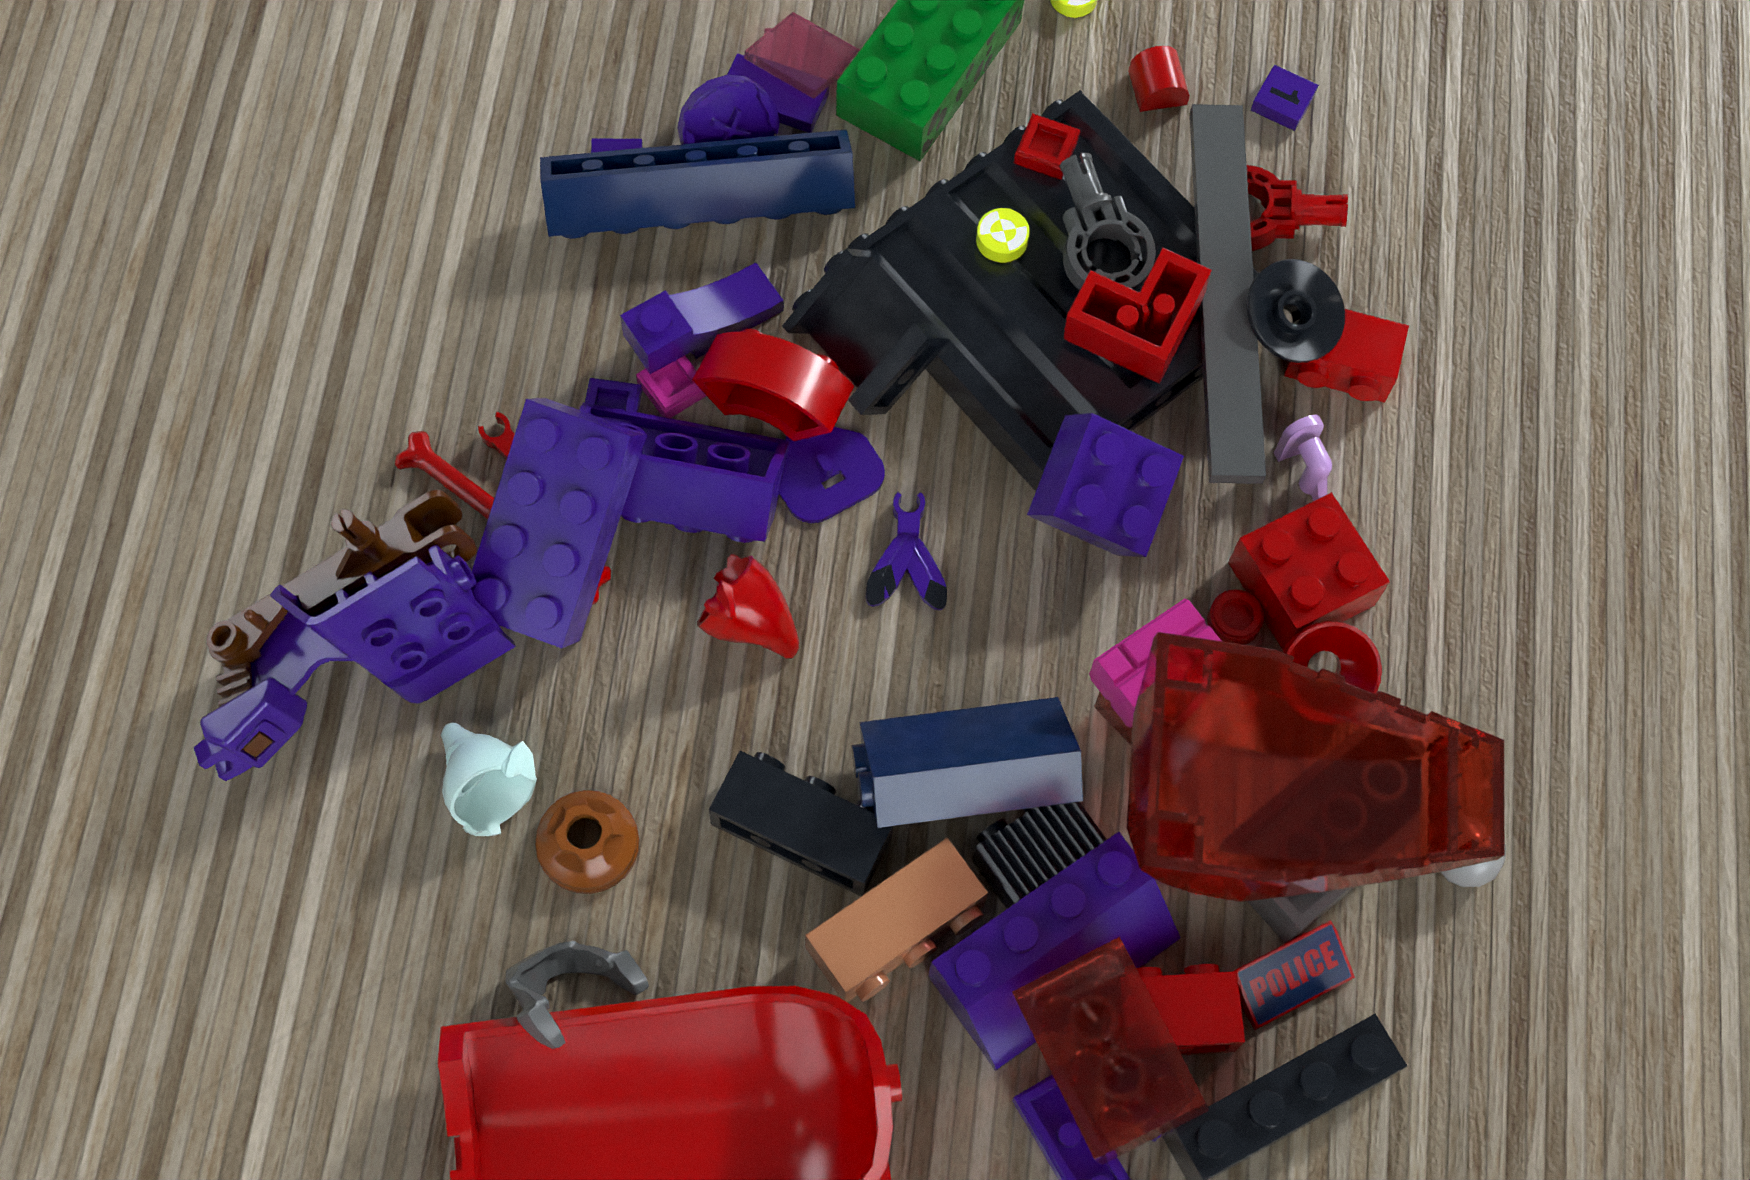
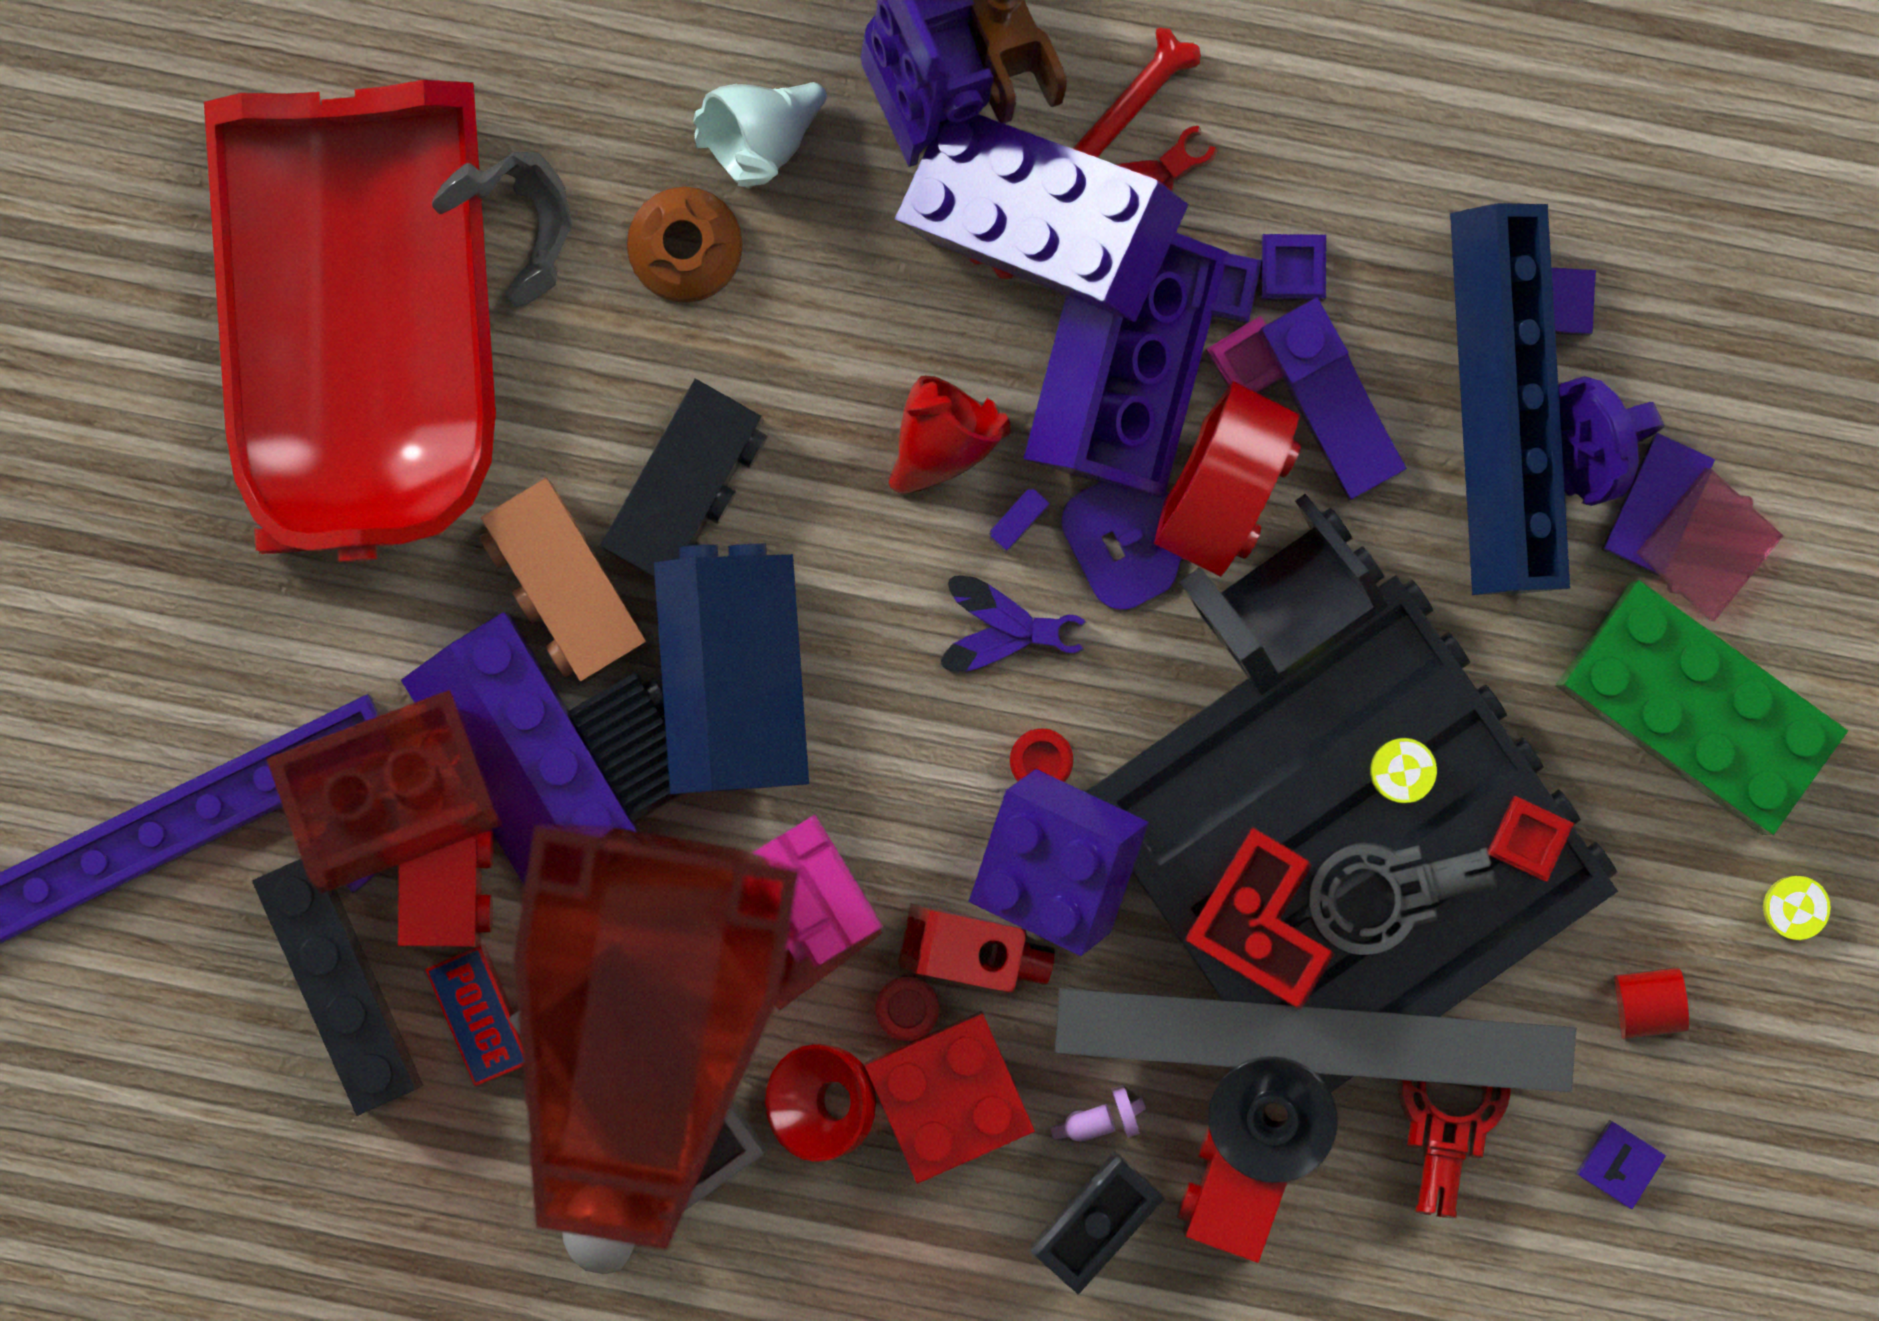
camera: 105 degrees right, 20 degrees up
(594, 354) = (1293, 266): none -> dark purple tile
(817, 546) = (1018, 519): none -> dark purple tile
(1012, 527) = (1042, 751): none -> red tile
(1184, 548) = (949, 945): none -> red torso
(1394, 449) = (1096, 1222): none -> black brick

